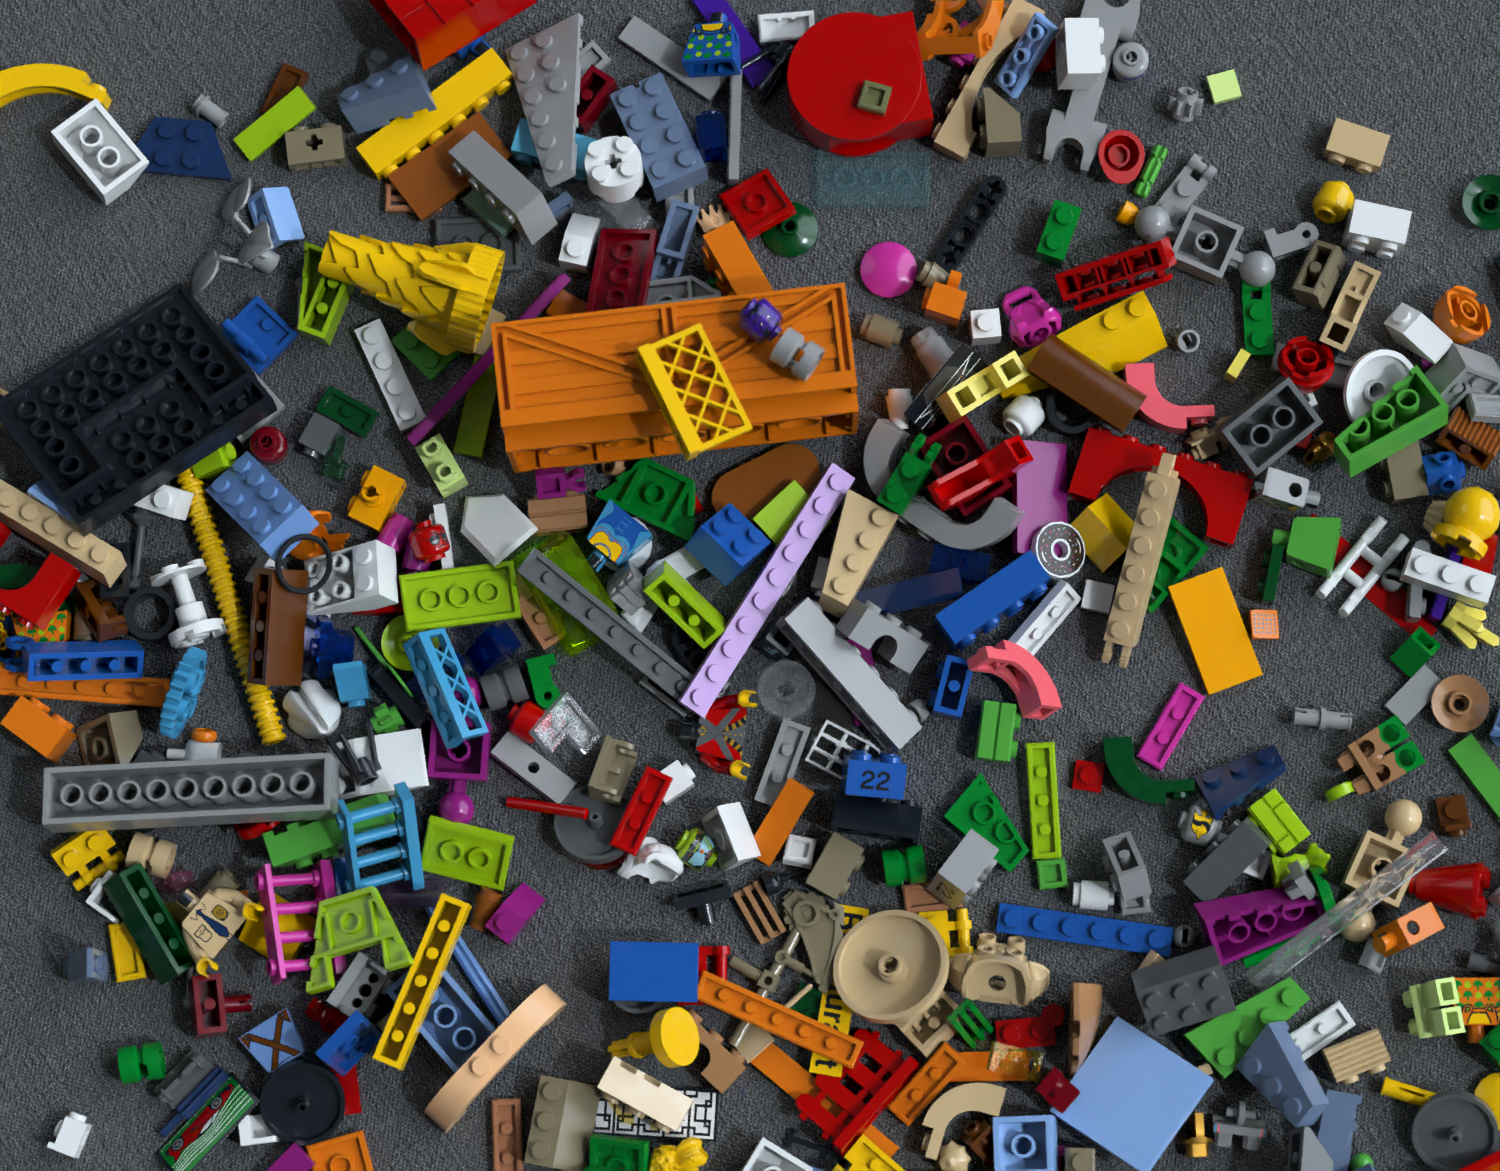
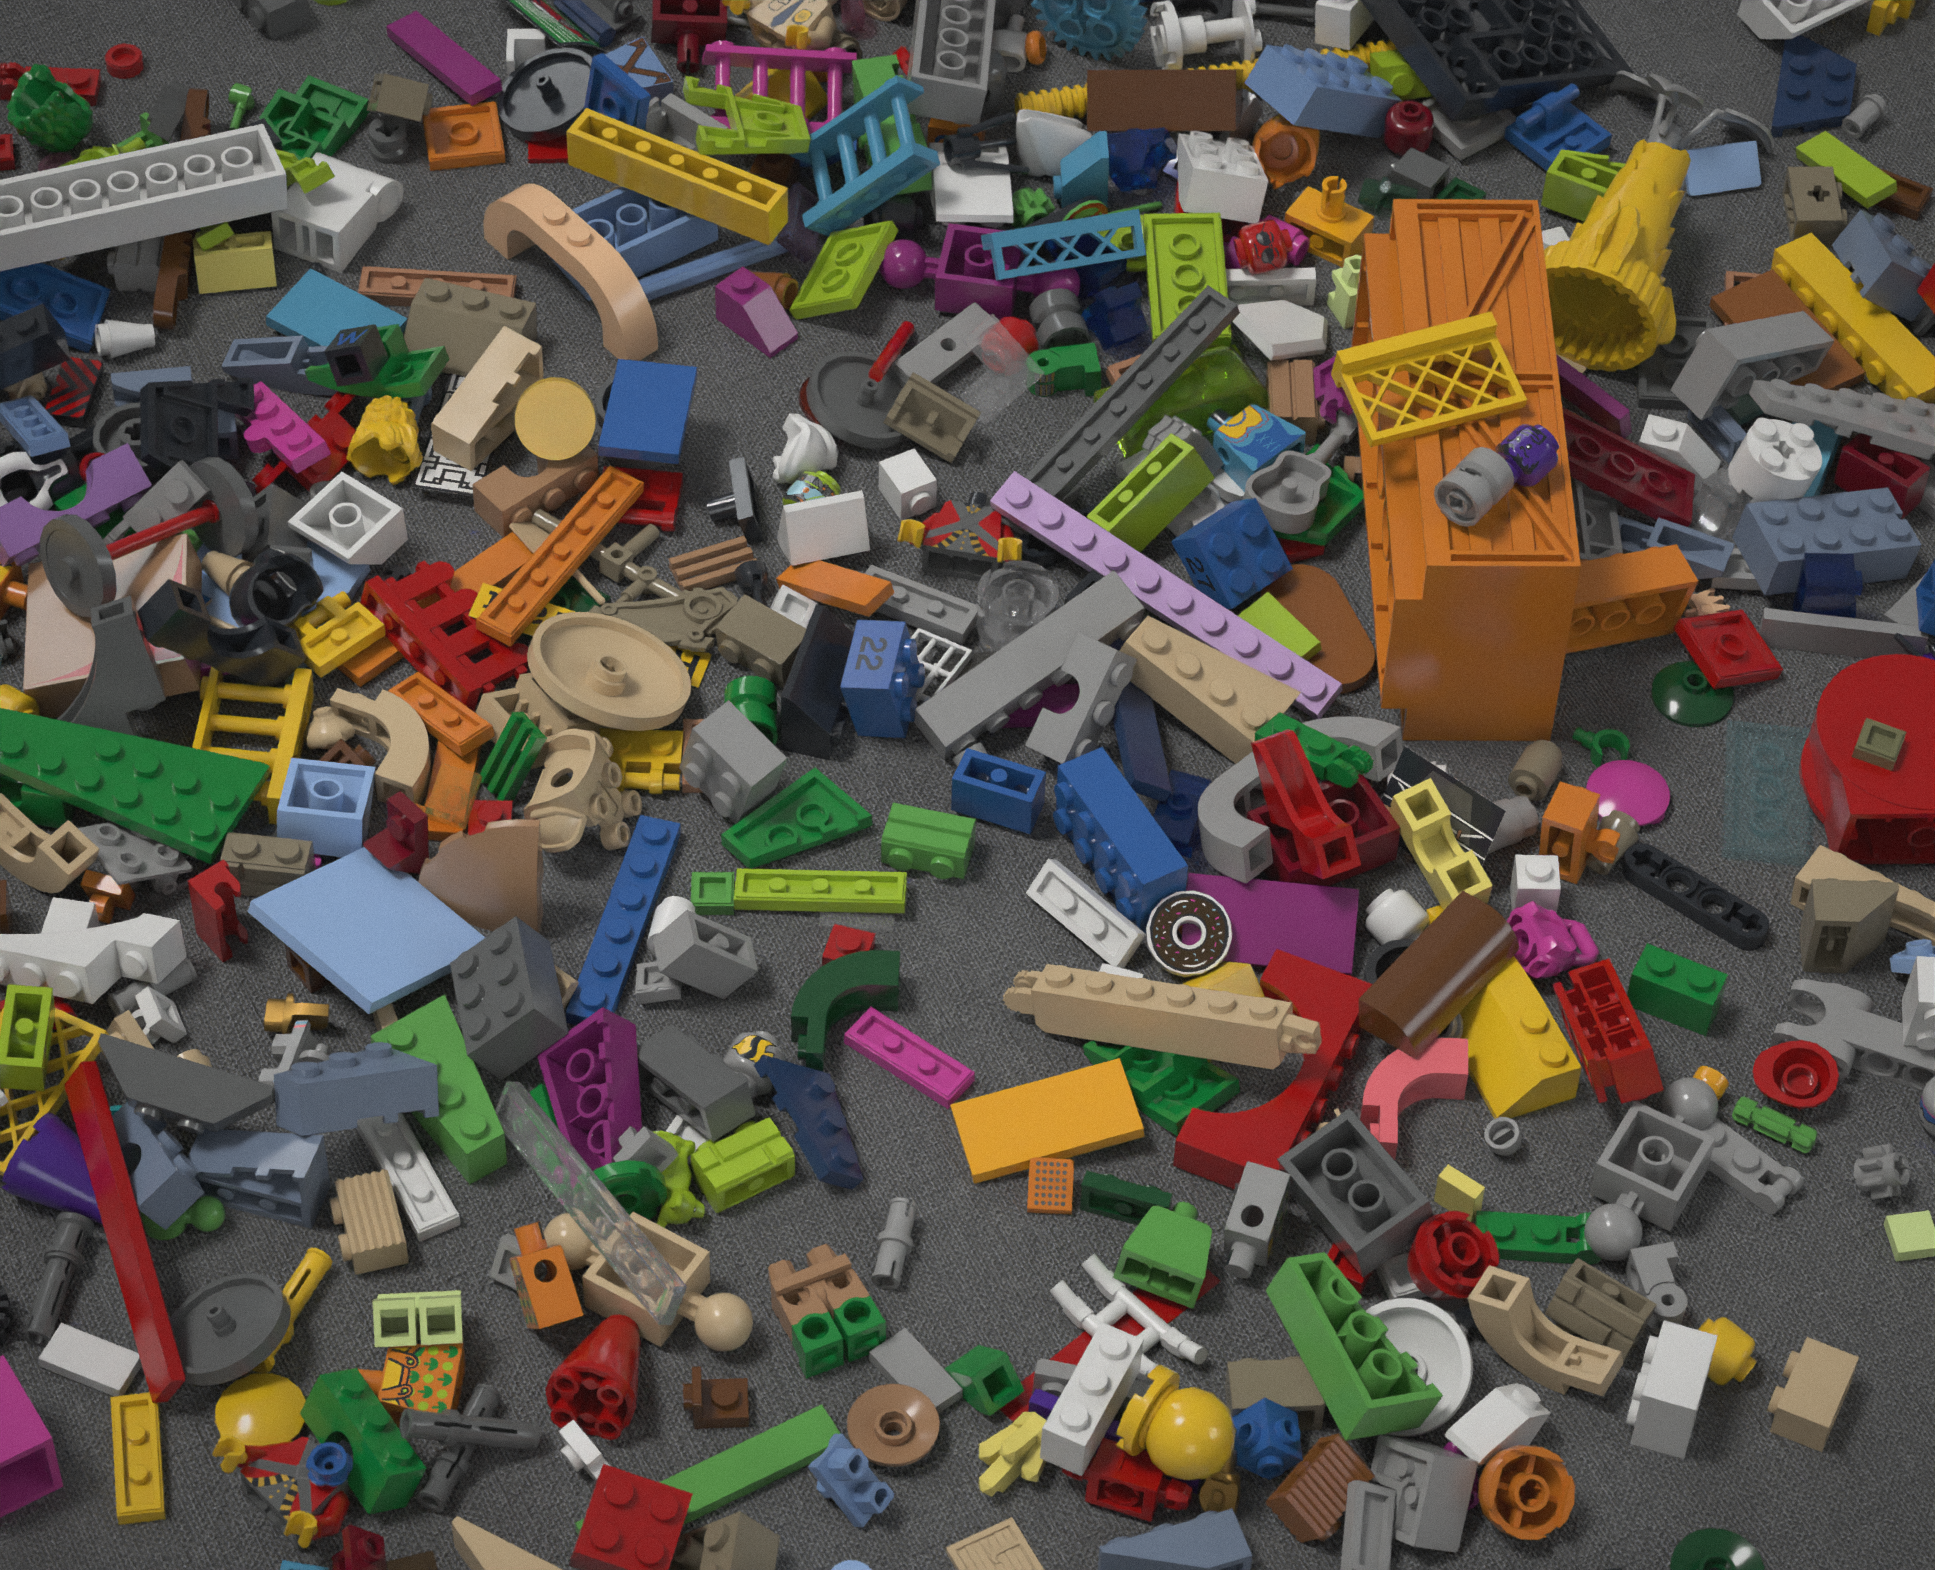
camera: 90 degrees right, 30 degrees down
(284, 583) = (1265, 131): black tyre -> none
(641, 811) = (869, 428): red tile -> none
(668, 509) = (1298, 481): none -> light grey piece
(850, 293) = (1603, 738): none -> green piece
(1024, 675) = (1014, 869): coral arch -> none
(1339, 791) = (777, 1245): lime tile -> none

